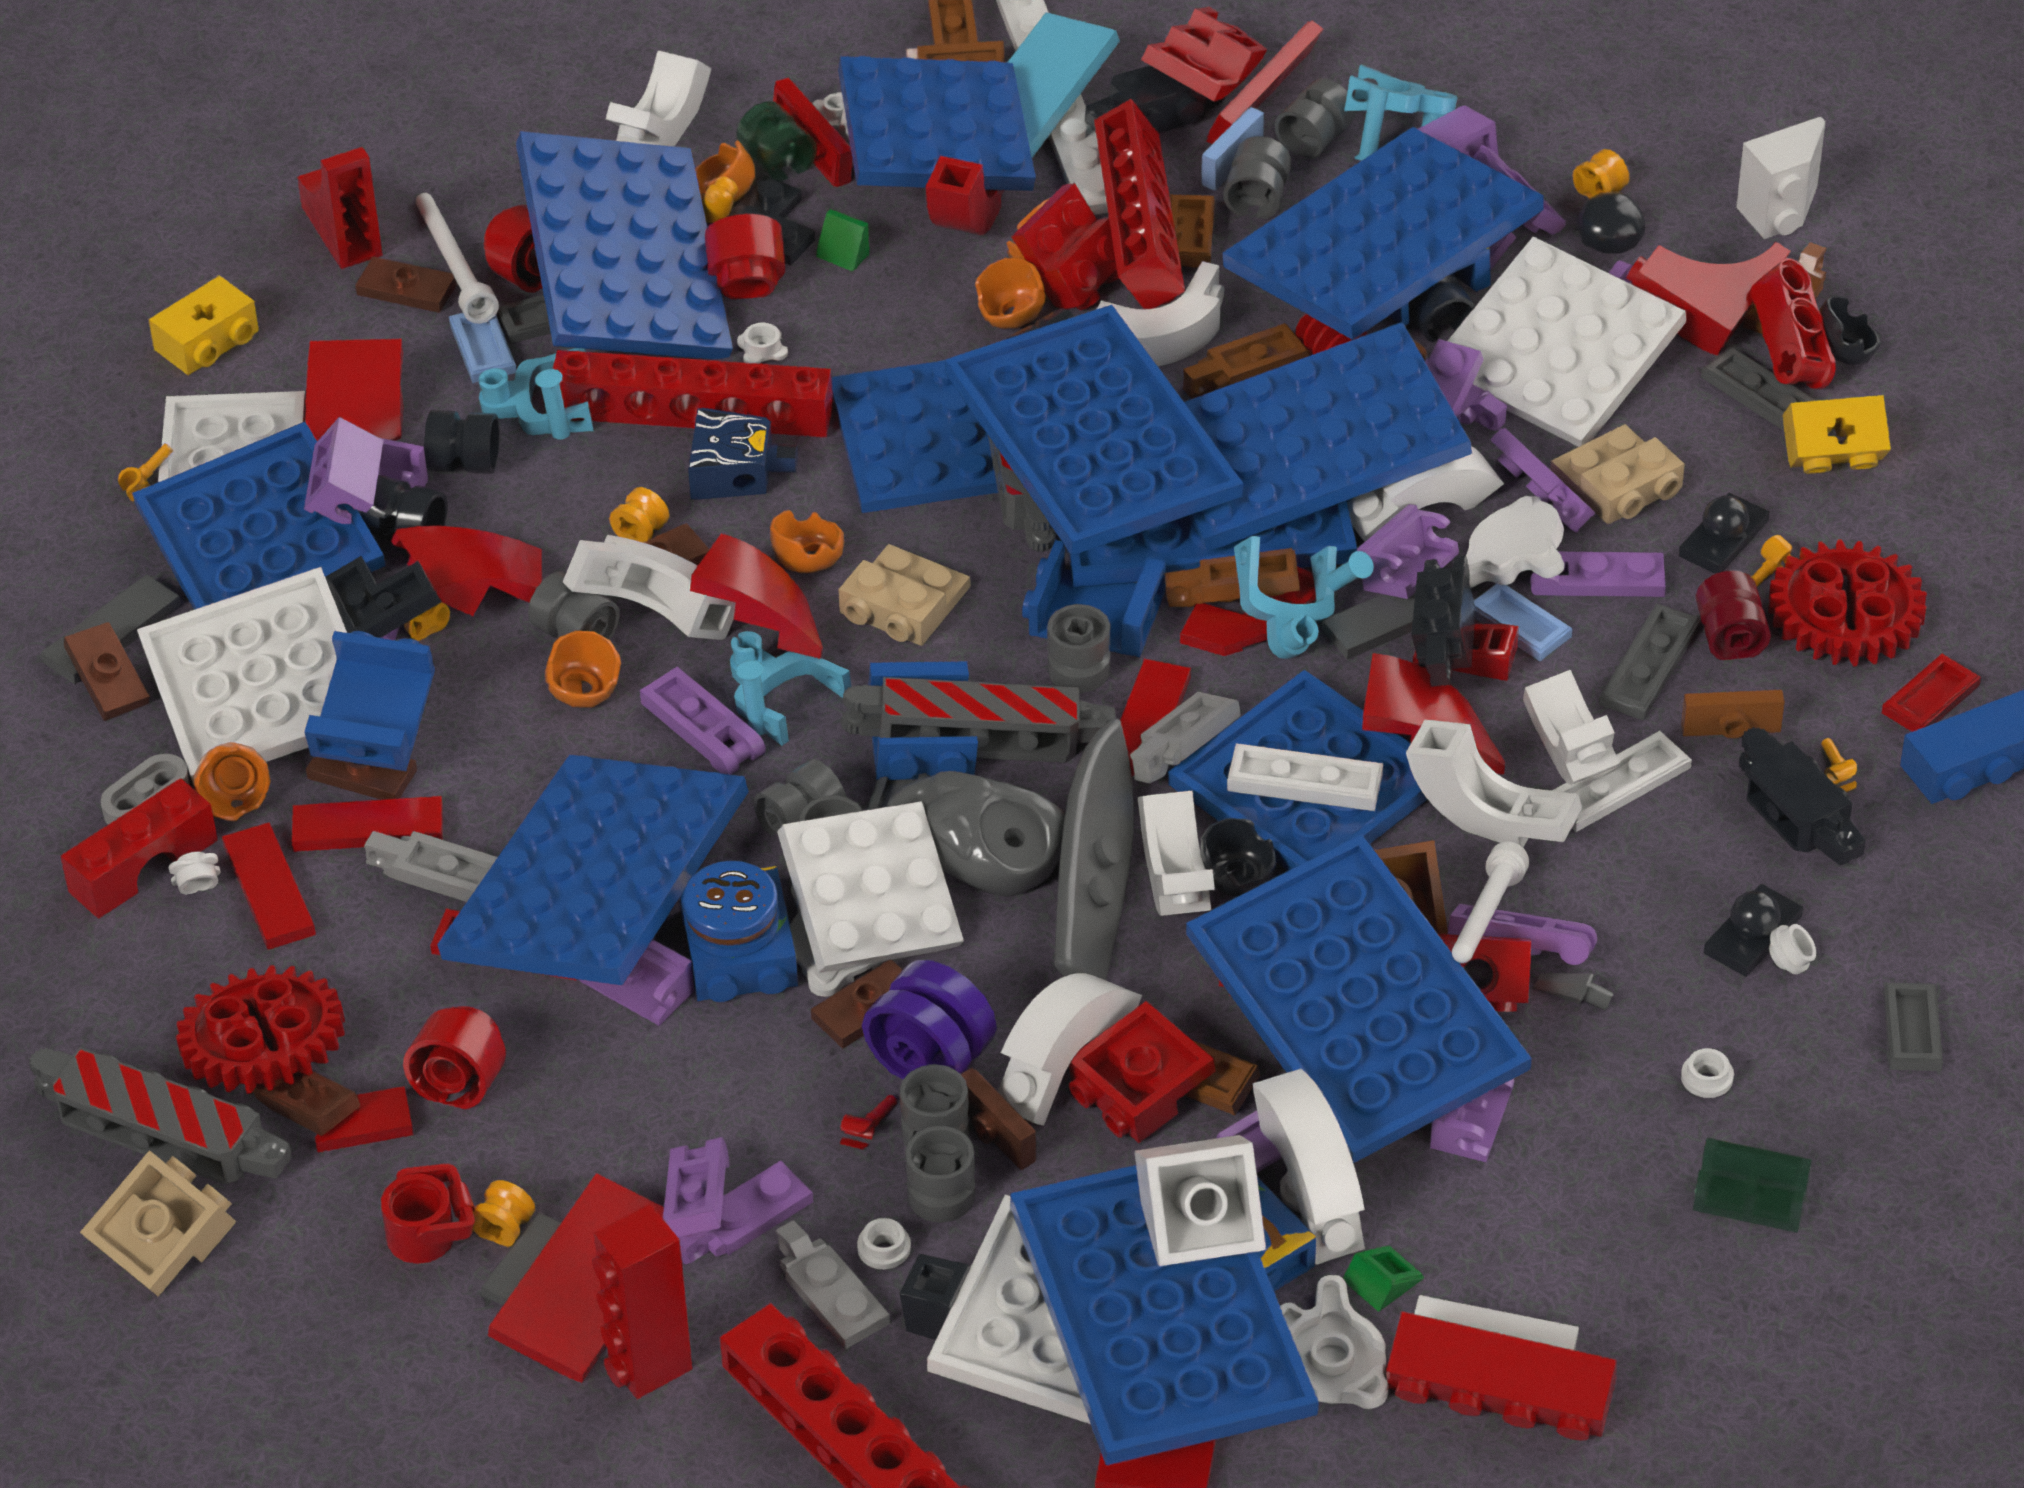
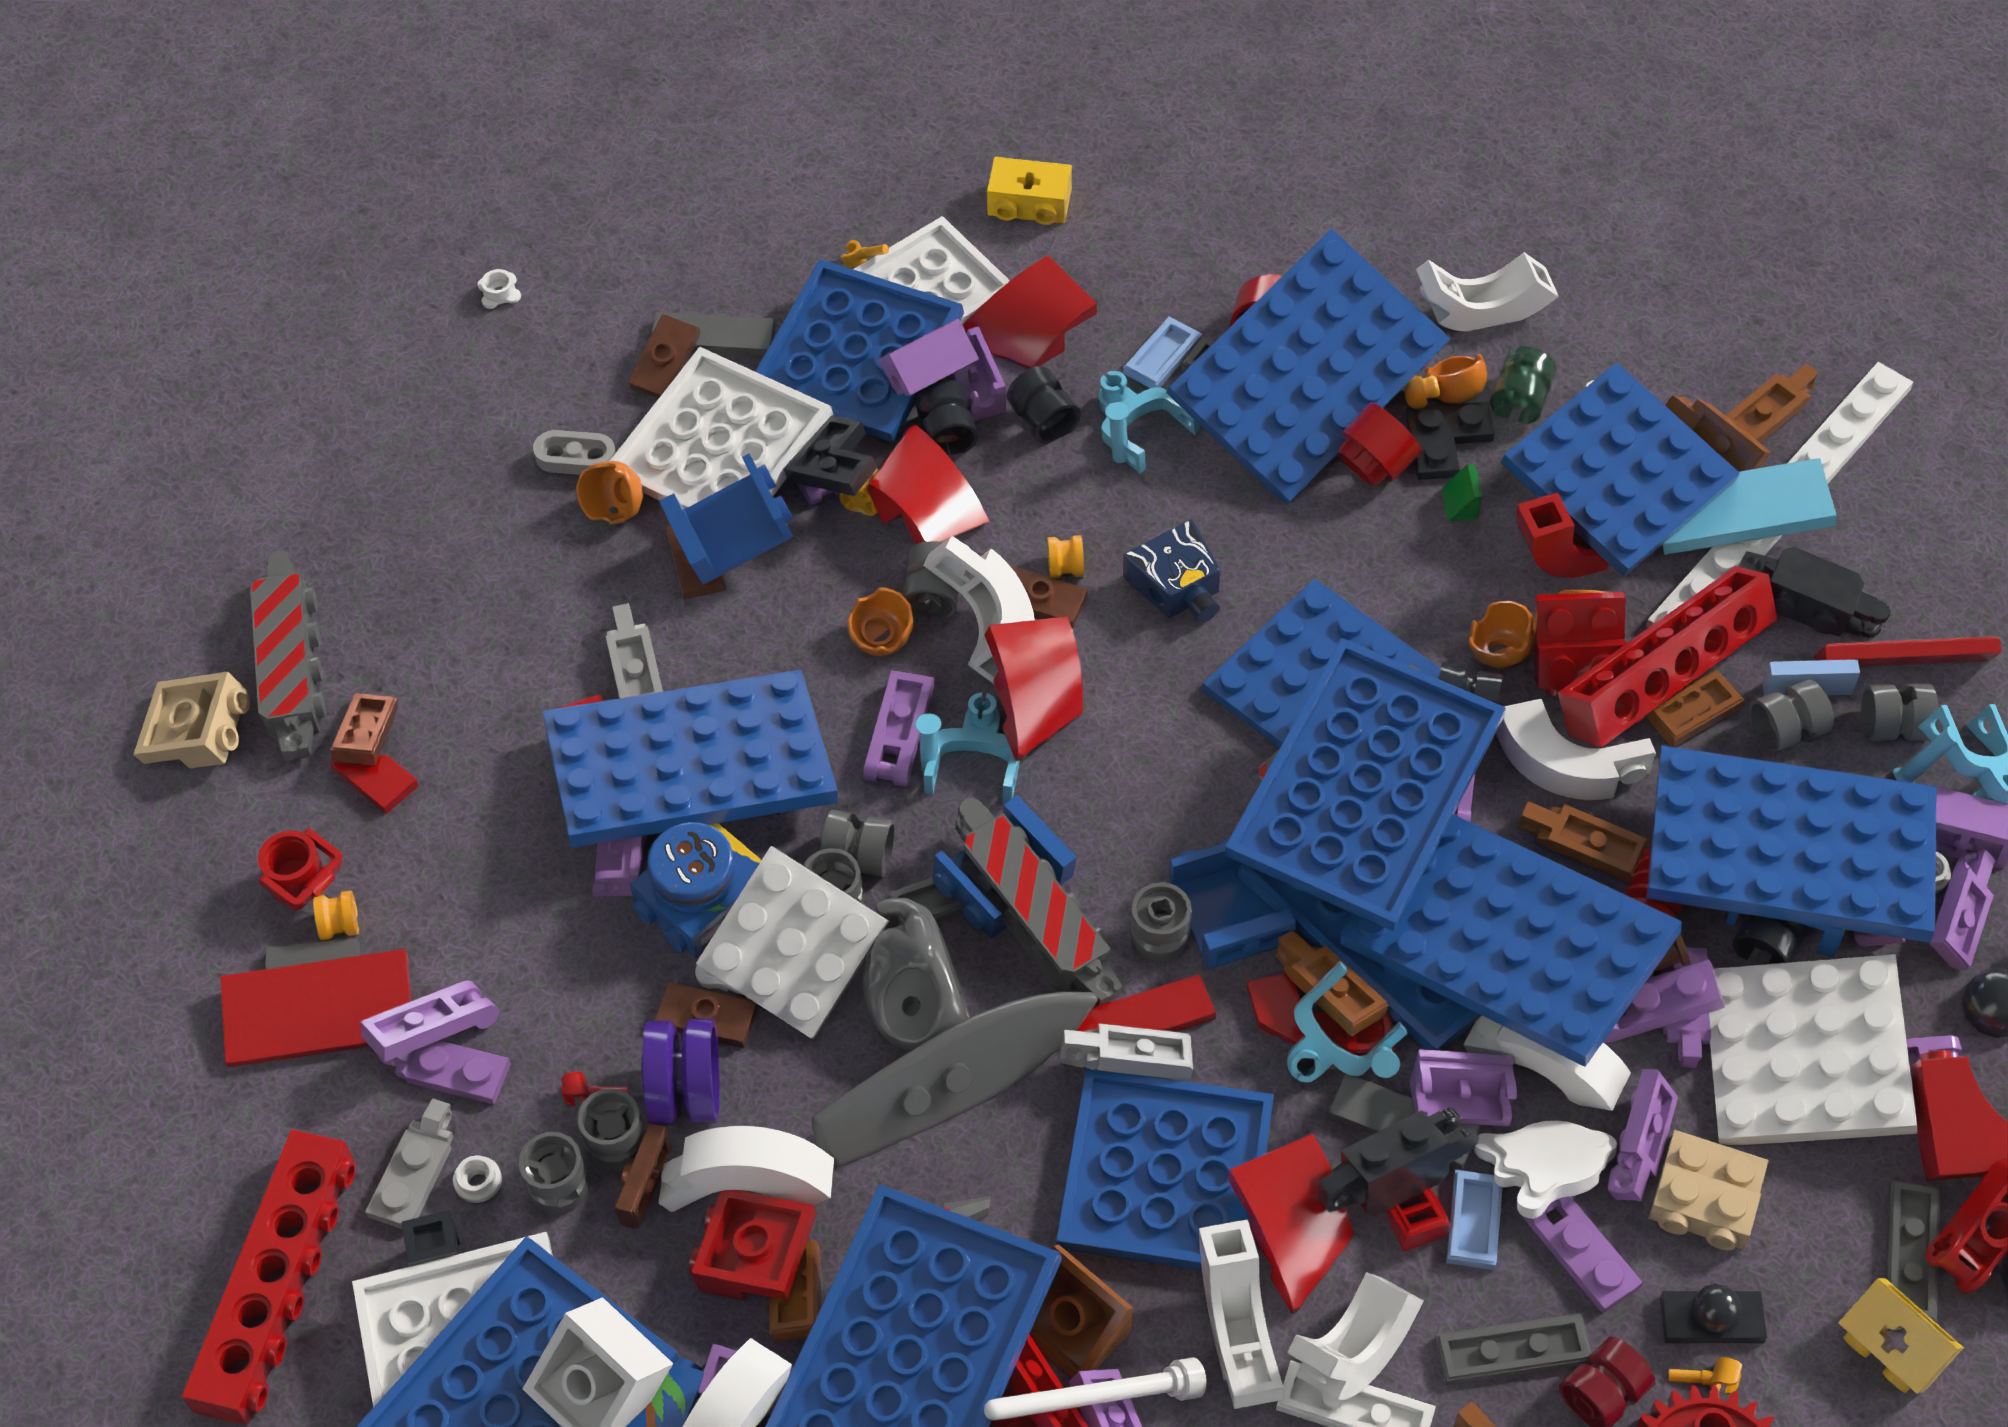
camera: 55 degrees right, 10 degrees up
(107, 864) = (541, 483): red arch -> none
(195, 872) = (520, 529): white plate -> none
(228, 1046) = (404, 661): red gear -> none
(268, 886) = (547, 578): red tile -> none
(343, 206) = (1199, 185): red arch -> none
(351, 823) = (648, 596): red tile -> none
(406, 284) = (1180, 272): copper plate -> none
(450, 1051) = (456, 791): red piece -> none
(476, 298) = (1188, 319): white piece -> none
(642, 1302) = (249, 1057): red brick -> none
(671, 390) = (1215, 507): red brick -> none
(762, 343) = (1314, 506): white plate -> none
(794, 538) = (1126, 661): orange hair -> none
(833, 152) = (1564, 381): red tile -> none
(902, 594) = (1133, 770): tan plate -> none
(1173, 854) = (998, 1131): white arch -> none
(1206, 54) = (1879, 591): red slope -> none
(1236, 845) = (1026, 1158): black hair -> none
(1305, 777) = (1151, 1169): white tile -> none

